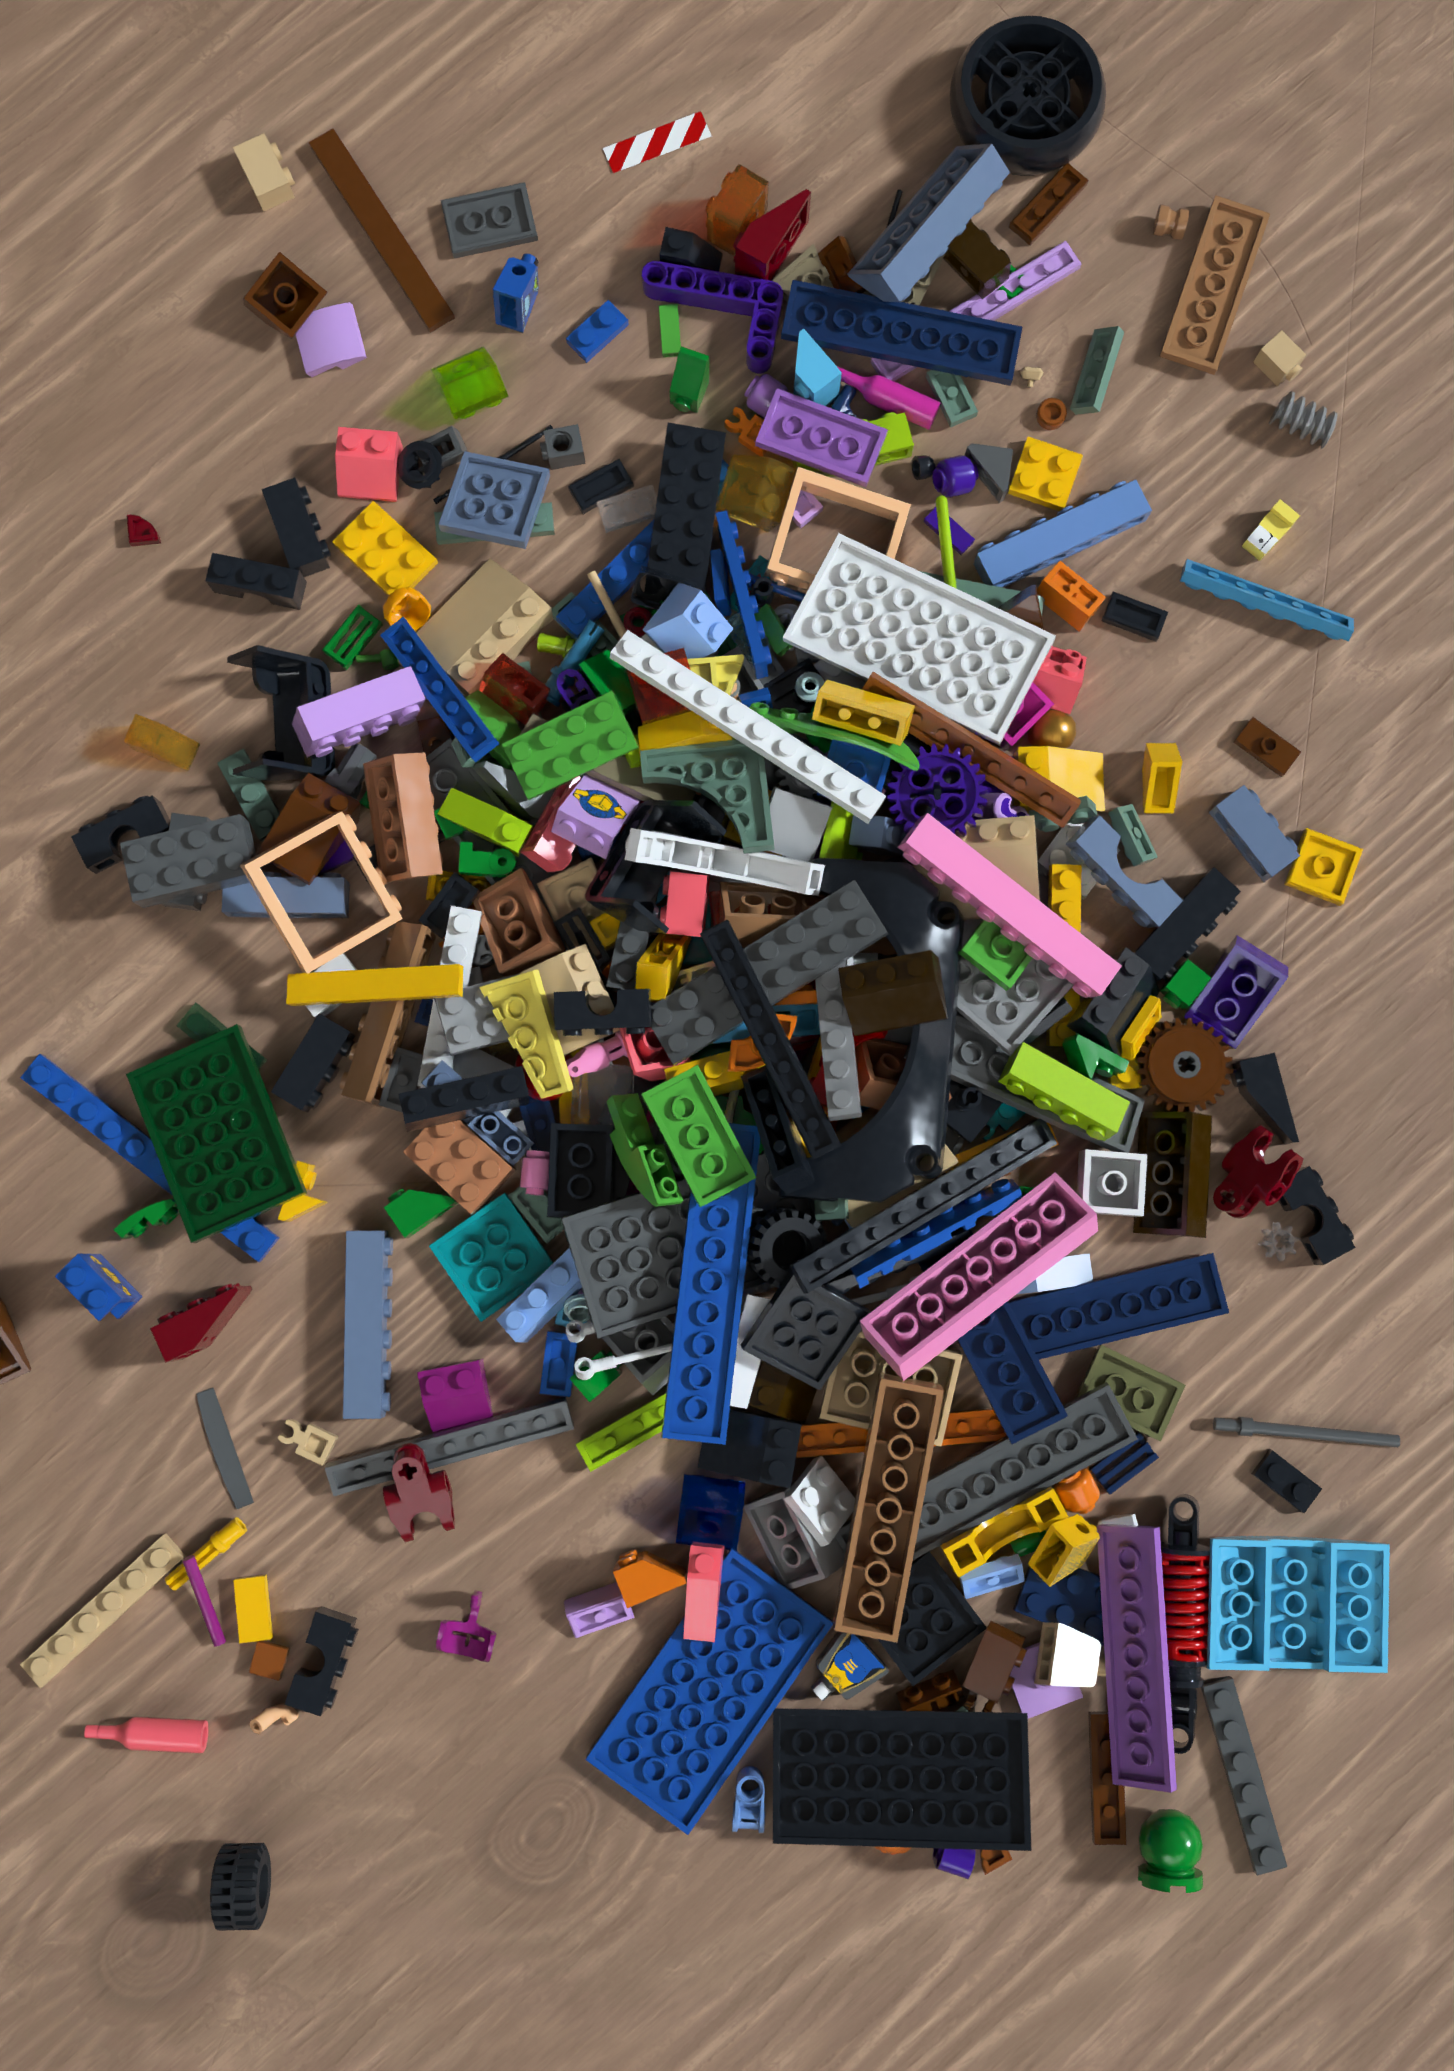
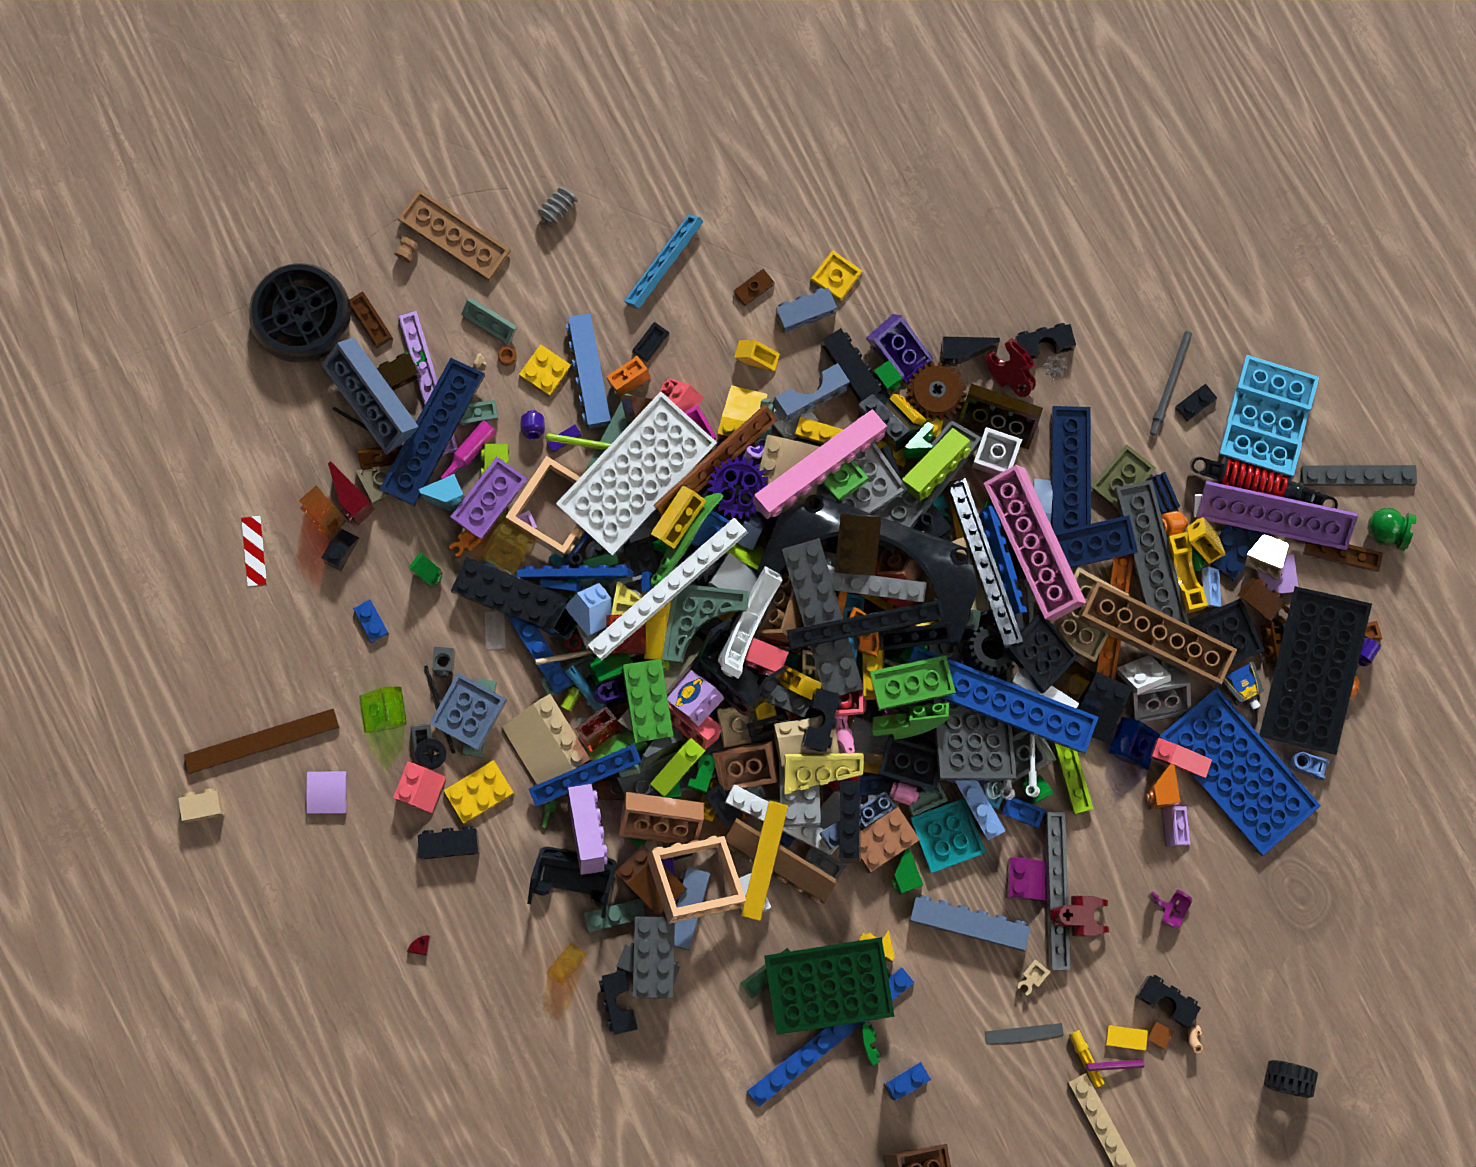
camera: 75 degrees left, 5 degrees down
(155, 1734) = (1188, 1115): coral piece -> none
(197, 1328) = (947, 1028): dark red slope -> none
(238, 576) = (479, 871): black arch -> none
(284, 296) = (292, 812): reddish brown slope -> none
(314, 1064) = (799, 916): black brick -> none
(350, 773) = (617, 847): dark grey piece -> none
(362, 642) = (538, 839): green tile -> none
(407, 604) = (520, 785): light orange hair -> none
(489, 220) = (275, 670): dark grey tile -> none
(520, 283) = (332, 663): blue torso -> none
(600, 485) = (474, 645): black tile -> none
(669, 330) = (383, 575): bright green piece -> none
(722, 300) = (376, 533): dark purple beam -> none
(761, 393) = (446, 527): medium lavender head -> none
(802, 692) = (644, 554): light aqua plate -> none
(844, 399) = (466, 482): dark blue arm -> none
(922, 467) = (520, 443): black hinge -> none
(992, 466) = (534, 400): dark grey slope -> none
(1053, 730) = (712, 410): pearl gold hair -> none
(1133, 835) = (783, 382): sand green plate -> none
(1270, 530) = (620, 247): light yellow leg -> none
(1280, 359) = (514, 209): tan brick -> none

